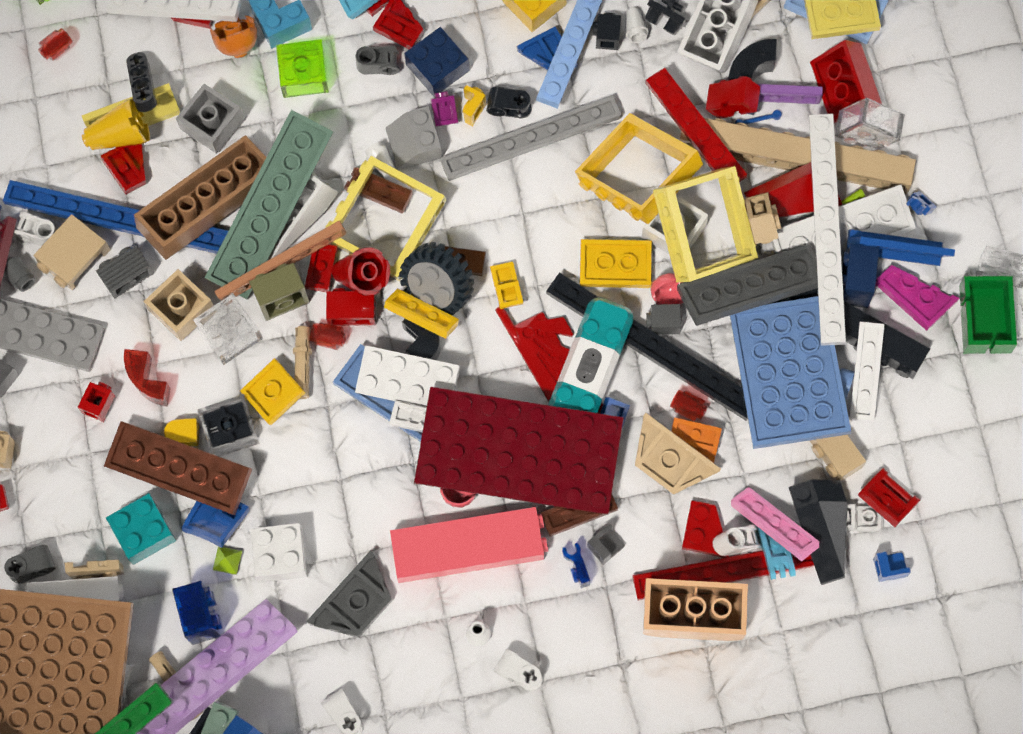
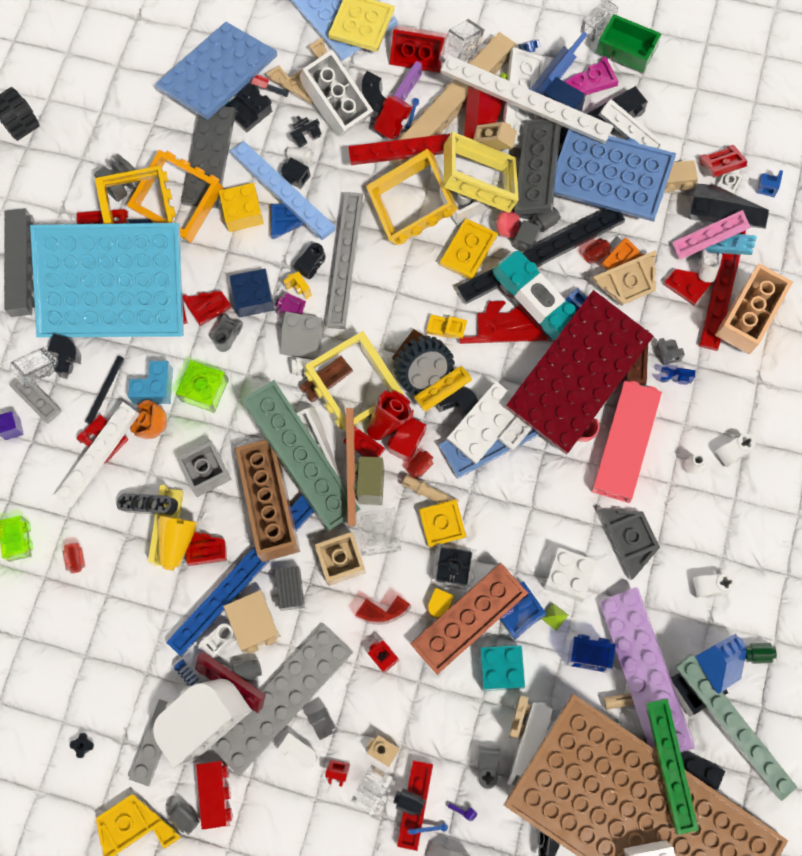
camera: 60 degrees left, 0 degrees up
(701, 334) = (546, 220): none -> dark grey brick

